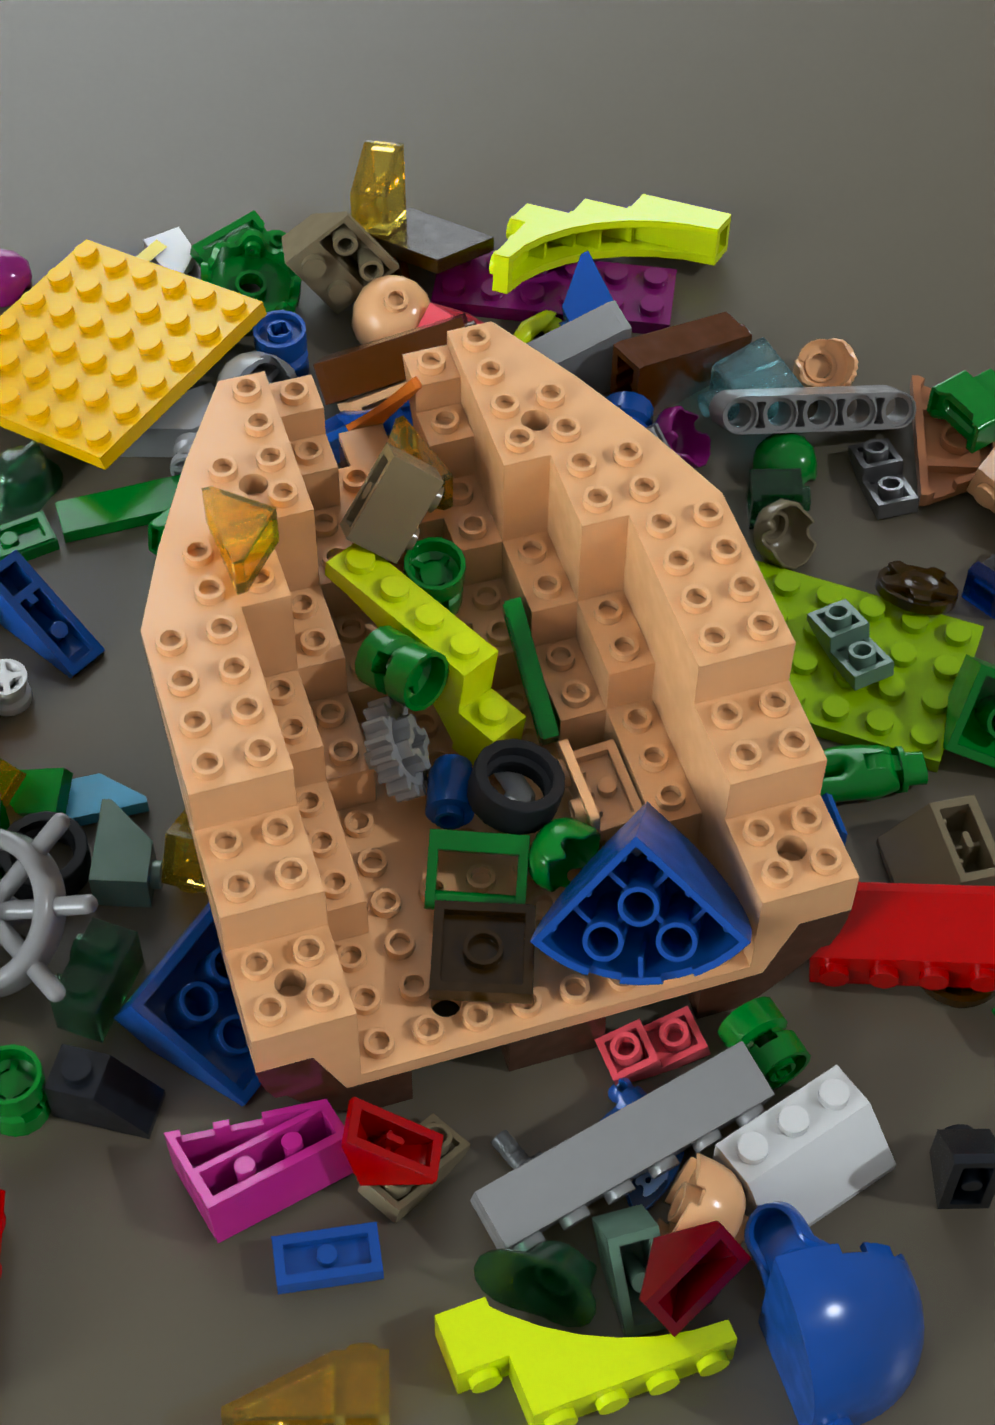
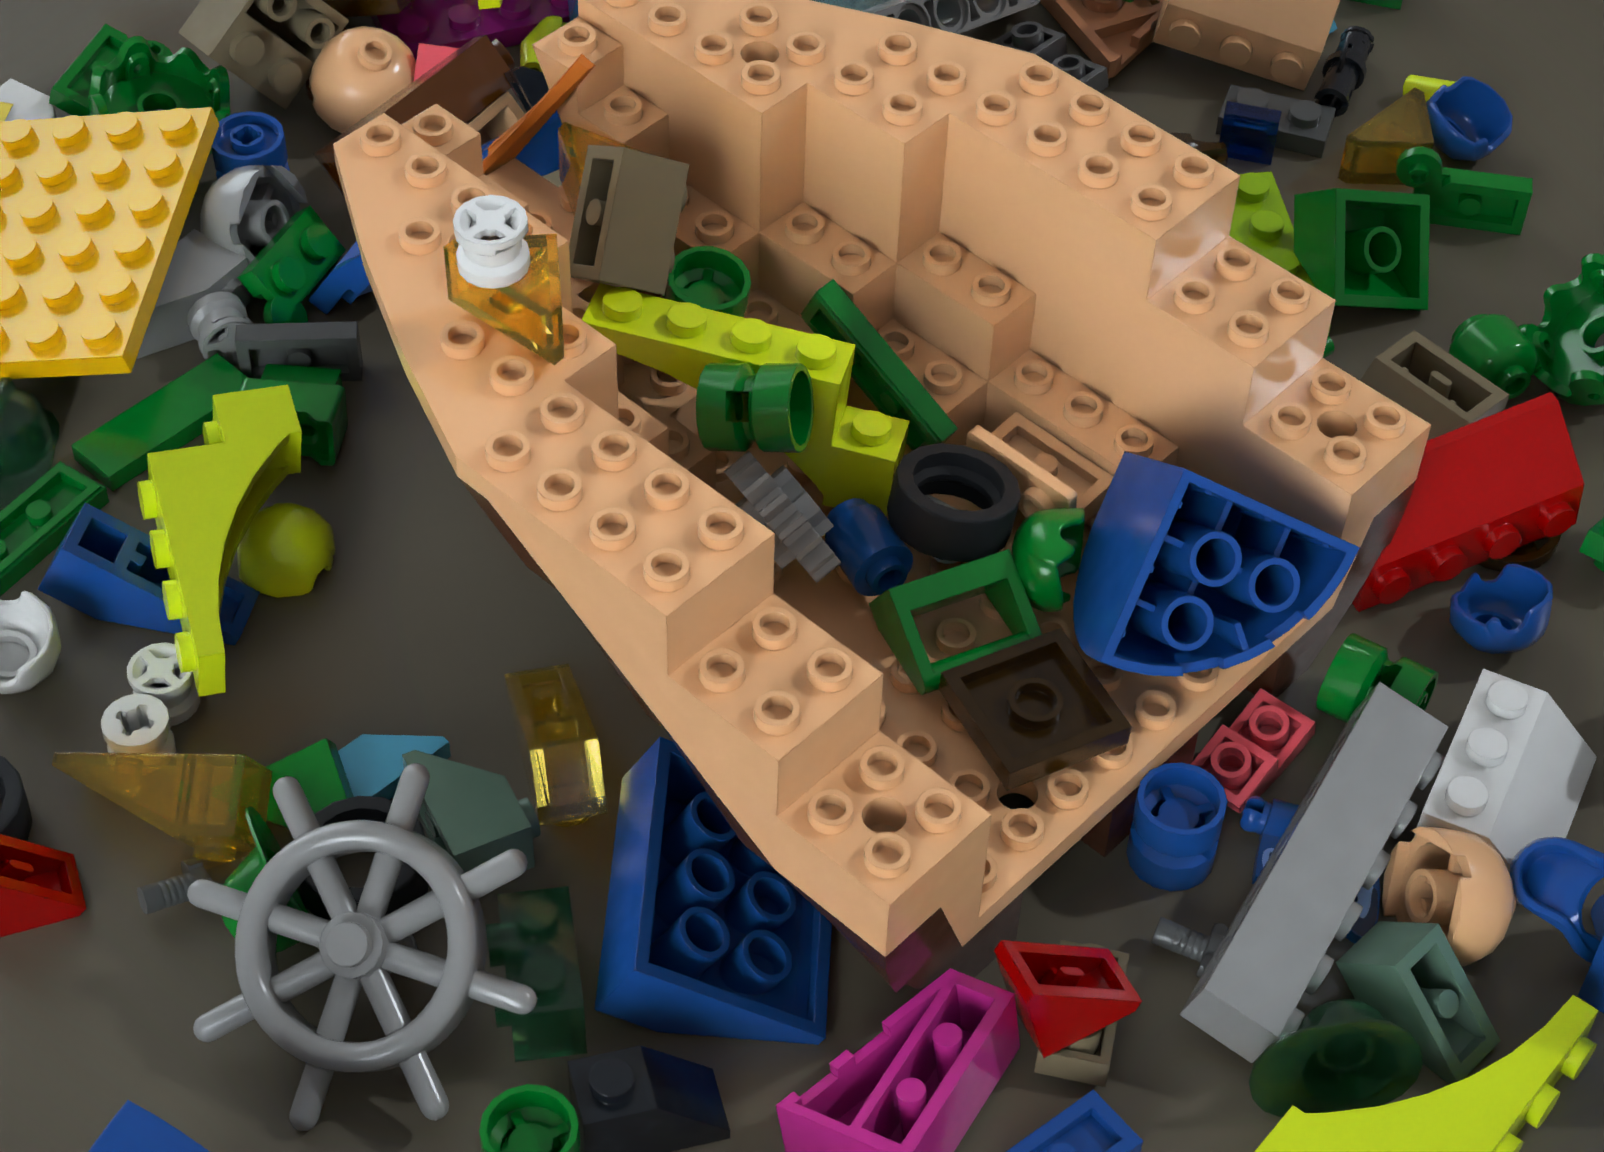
camera: 30 degrees left, 5 degrees down
(81, 585) = (204, 507): none -> neon yellow arch
(123, 628) = (285, 550): none -> neon yellow hair
(221, 499) = (491, 241): none -> white wheel
(554, 1074) = (1176, 826): none -> blue wheel
(689, 1272) = (1512, 952): dark red slope -> none
(898, 1028) = (1503, 612): none -> blue hair

